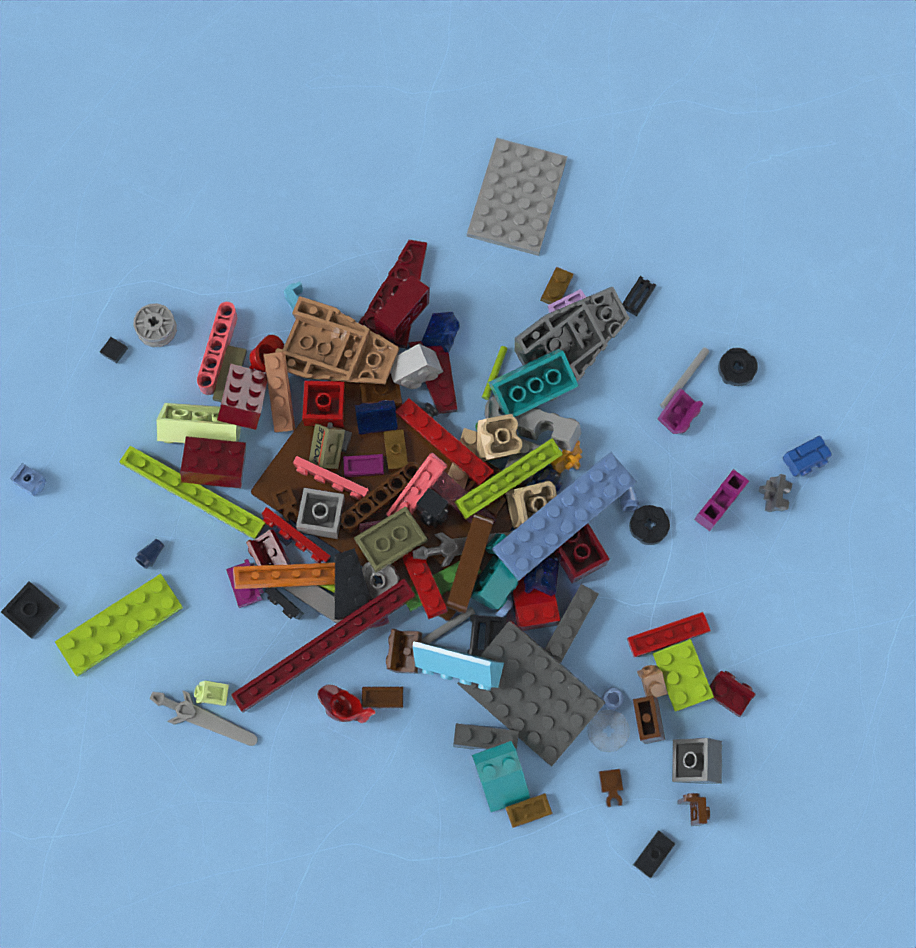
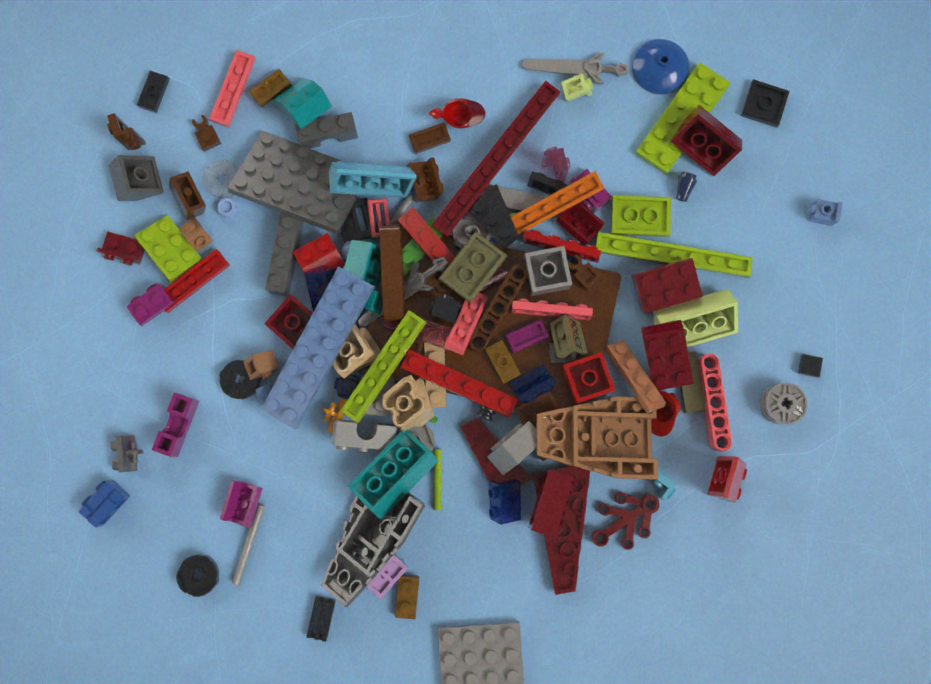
camera: 165 degrees right, 10 degrees up
(108, 586) = (707, 140): none -> dark red slope
(125, 697) = (658, 76): none -> blue dish
(206, 540) = (641, 216): none -> lime plate
(238, 279) = (727, 478): none -> red slope
(264, 610) = (557, 158): none -> clear pink bracket
(338, 282) = (628, 518): none -> dark red plant
(460, 645) = (371, 217): none -> coral tile
(568, 824) = (232, 88): none -> coral plate
(624, 526) = (261, 365): none -> medium nougat brick
(716, 623) = (150, 304): none -> magenta bracket

